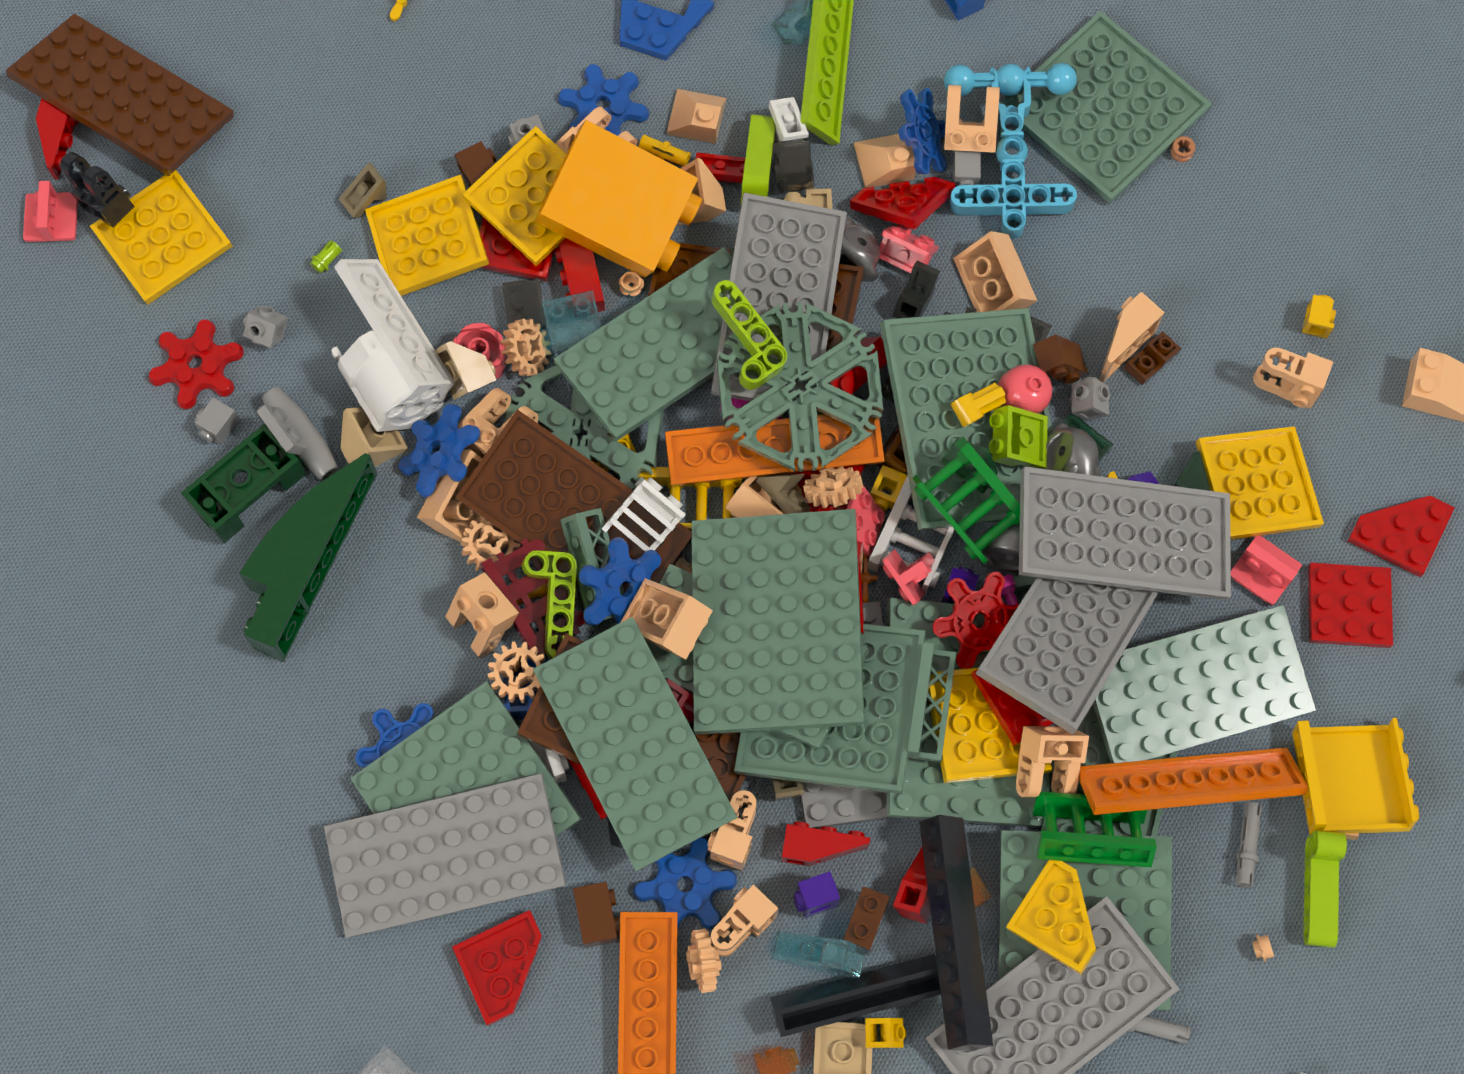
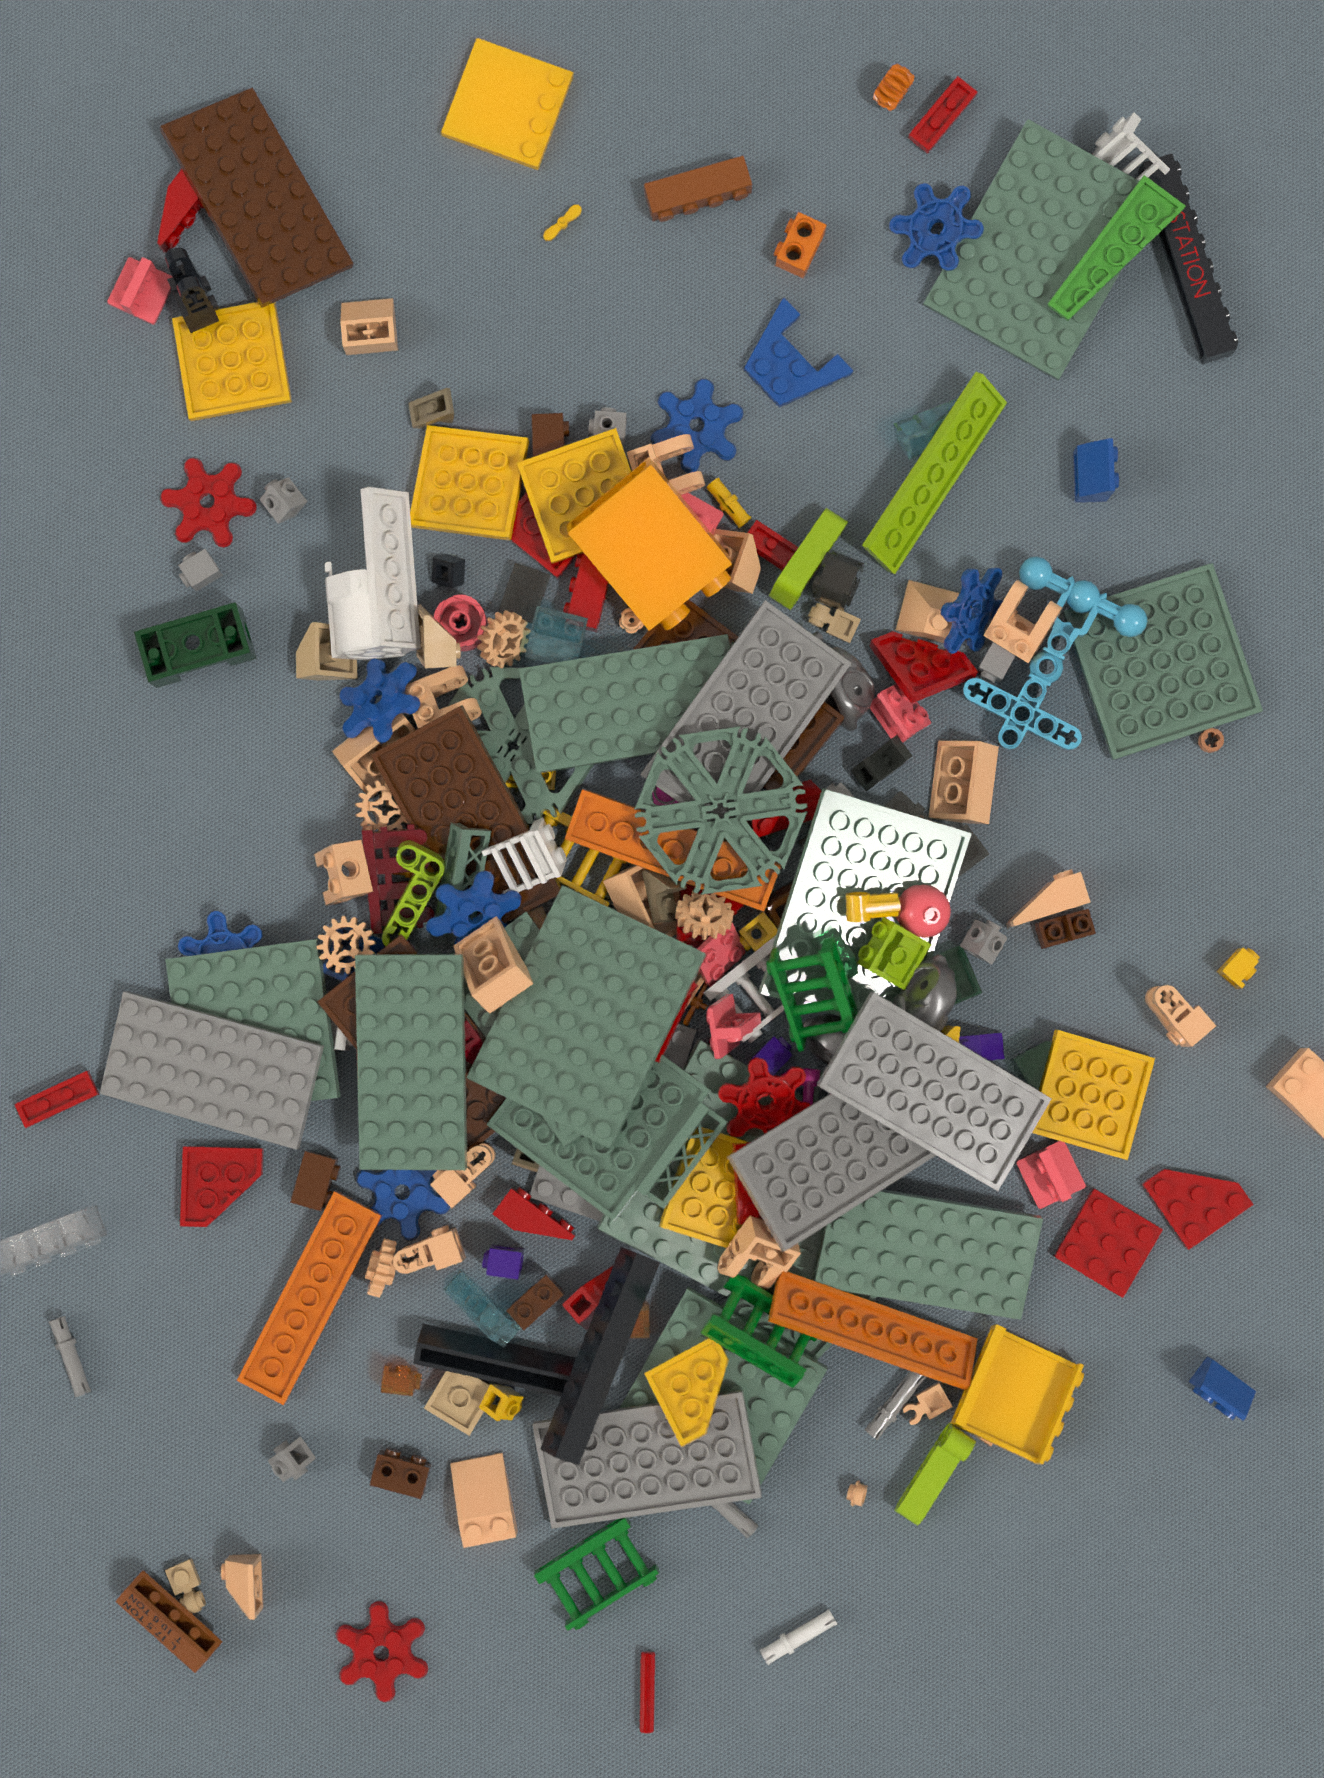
camera: 30 degrees right, 15 degrees up
(274, 153) = (368, 326): none -> light nougat slope
(297, 433) = (261, 619): light grey plate -> none
(298, 555) = (211, 738): dark green slope -> none
(305, 965) = (56, 1099): none -> red plate
(325, 256) = (370, 455): lime pin -> none
(445, 319) = (448, 570): none -> black slope
(696, 116) = (777, 479): light nougat slope -> none
(744, 330) = (693, 741): lime beam -> none
(787, 120) = (853, 534): white slope -> none
(1060, 359) = (976, 894): reddish brown brick -> none
(1281, 827) = (931, 1401): none -> light nougat plate

